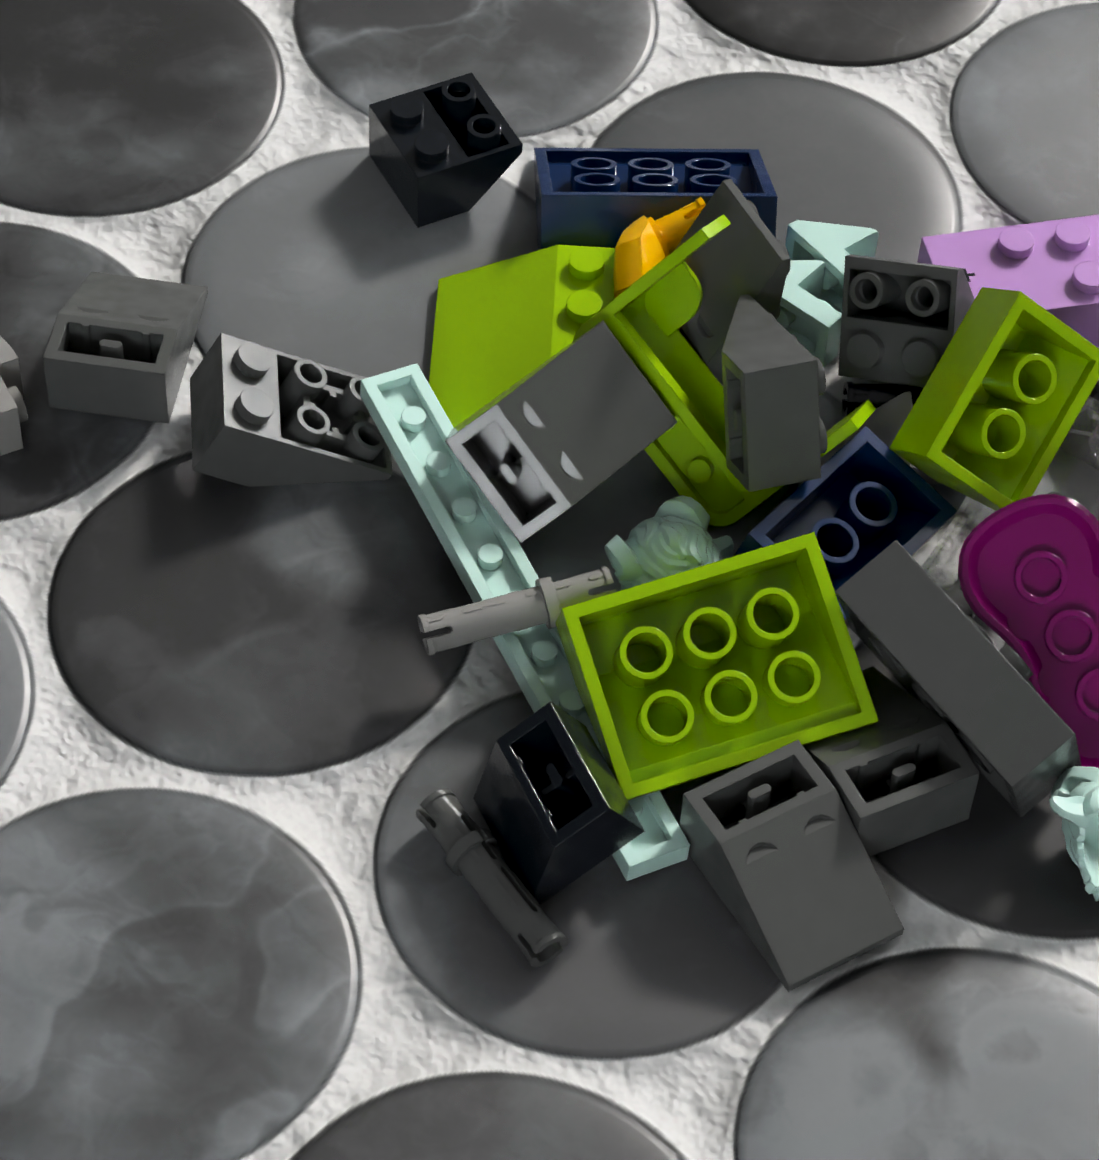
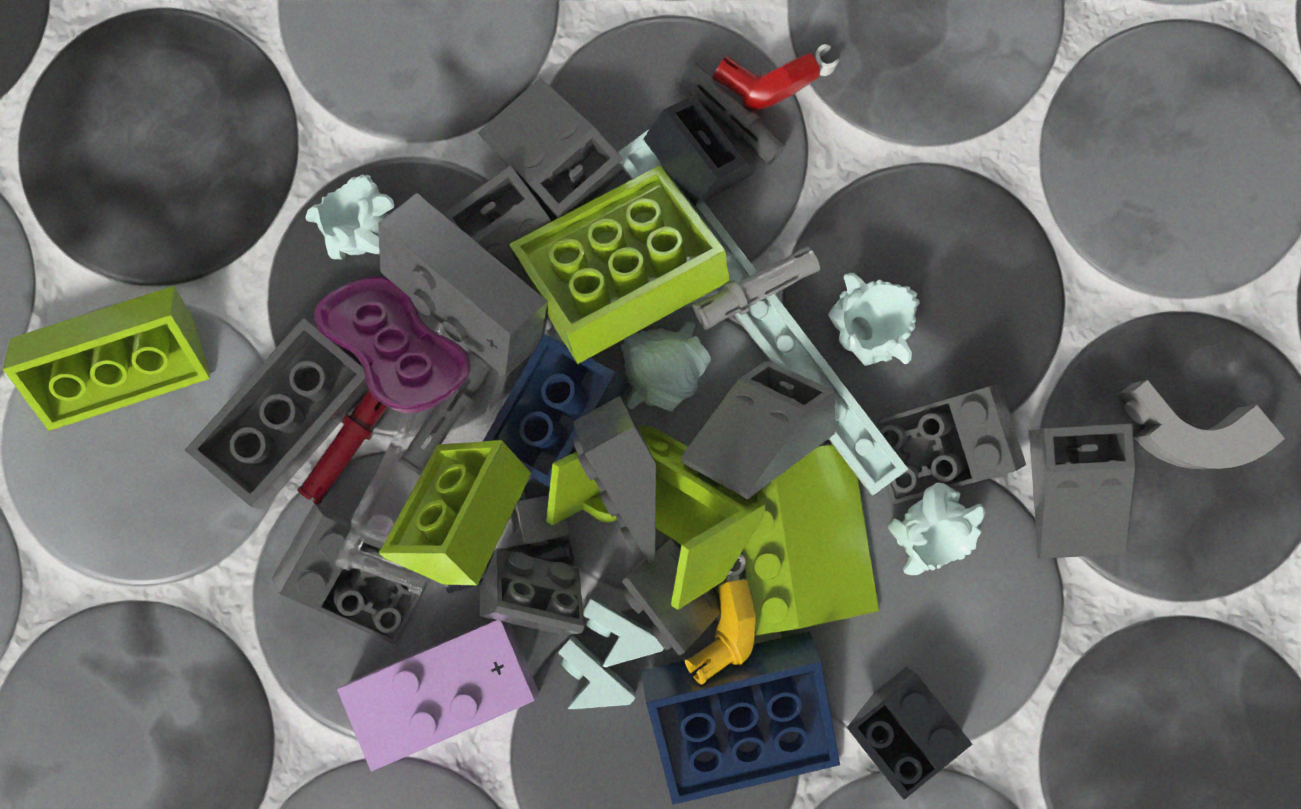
camera: 175 degrees right, 35 degrees up
(345, 331) = (937, 530): none -> light aqua hair
(353, 559) = (875, 319): none -> light aqua hair
(404, 889) = (776, 85): none -> red arm

